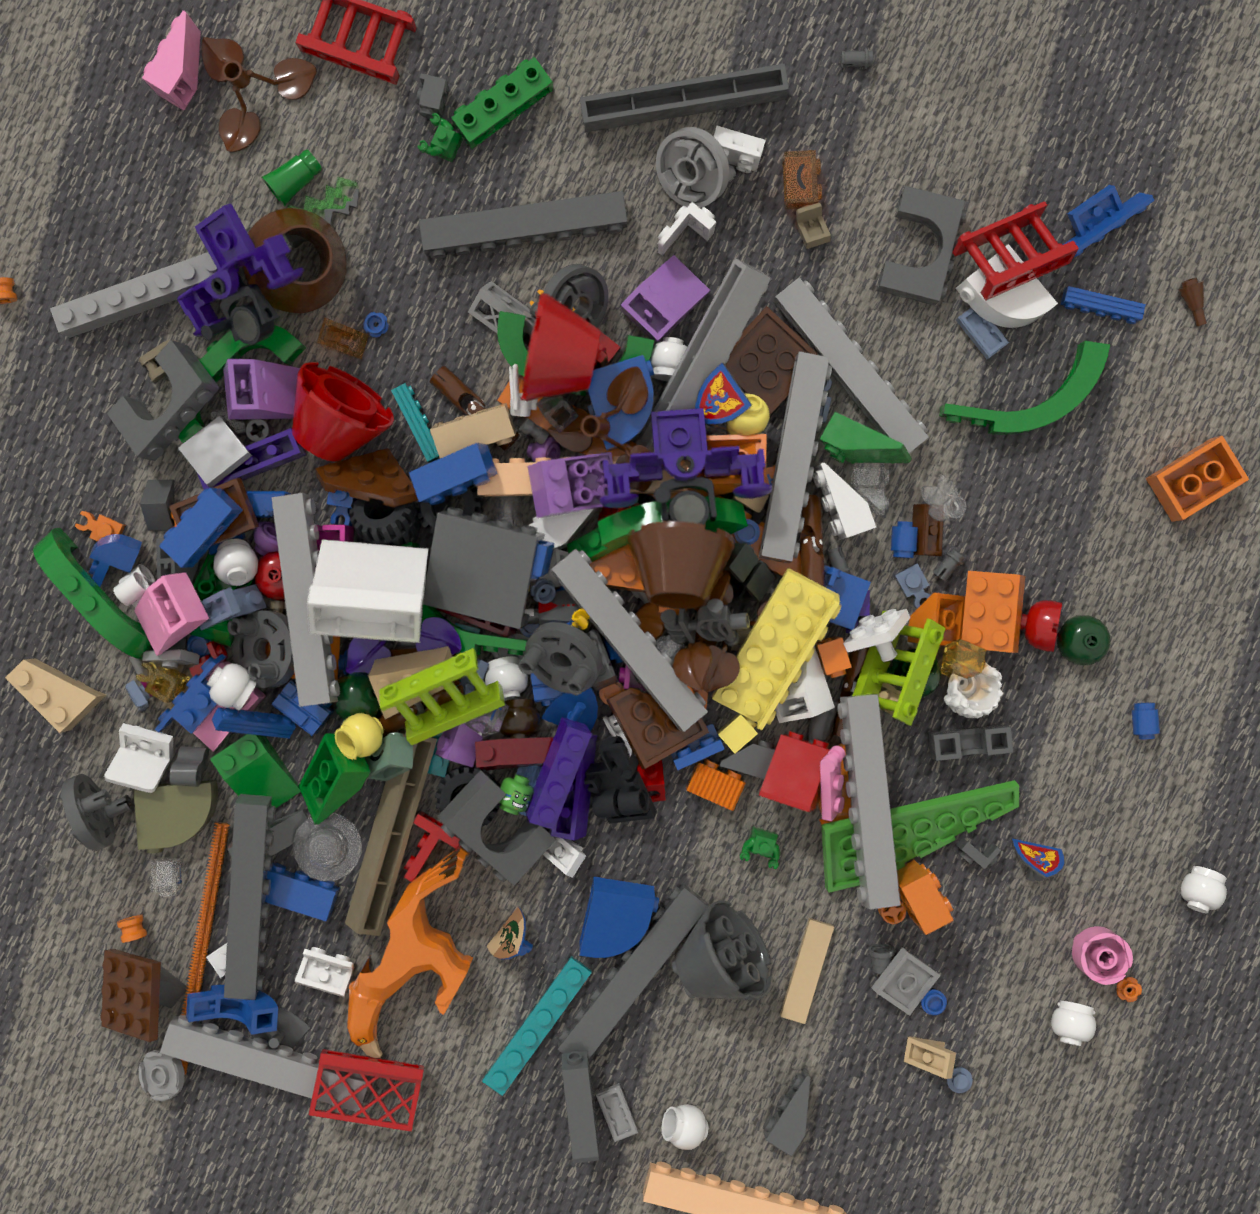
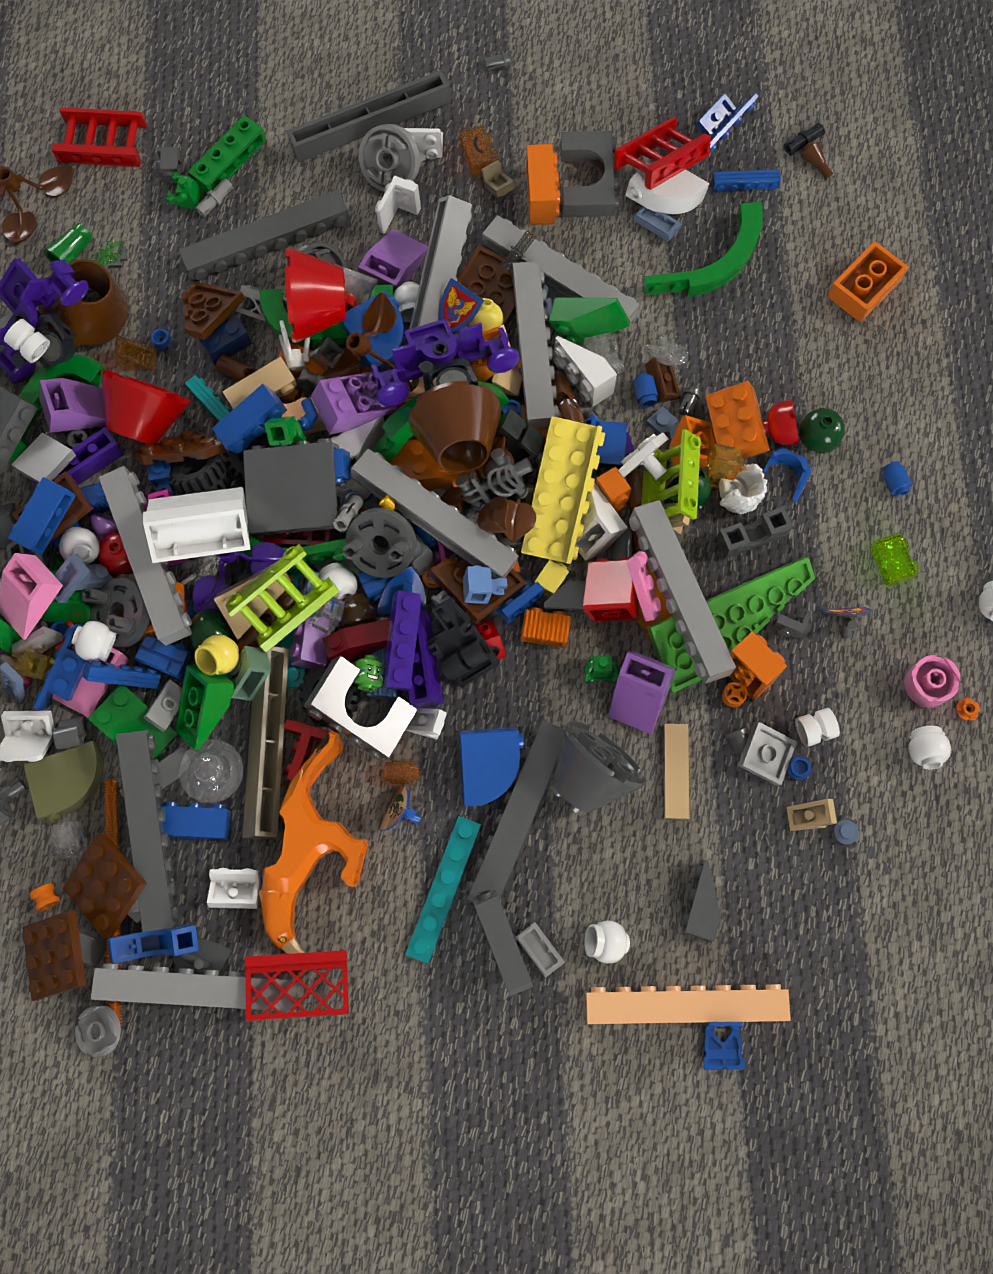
camera: 15 degrees left, 15 degrees down
(194, 939) = (104, 886): none -> reddish brown plate
(219, 315) = (22, 337): none -> white wheel
(293, 762) = (164, 706): none -> light grey plate
(435, 307) = (208, 307): none -> reddish brown plate
(447, 349) = (226, 339): none -> dark blue brick
(475, 154) = (214, 197): none -> light grey pin
(487, 502) = (283, 430): none -> green piece
(520, 489) = (310, 417): none -> blue arm
(524, 898) = (401, 772): none -> clear orange brick
(530, 623) = (348, 513): none -> light grey pin
(614, 324) = (358, 284): none -> clear slope
(656, 732) = (479, 585): none -> medium blue brick
(797, 885) = (641, 691): none -> medium lavender slope
(809, 335) = (518, 251): none -> clear smoke axle
(862, 250) = (542, 184): none -> orange brick
(968, 968) = (815, 727): none -> white wheel
(1045, 674) = (796, 462): none -> blue helmet
(1110, 811) = (894, 559): none -> clear neon green brick
(1189, 268) = (804, 138): none -> black pin

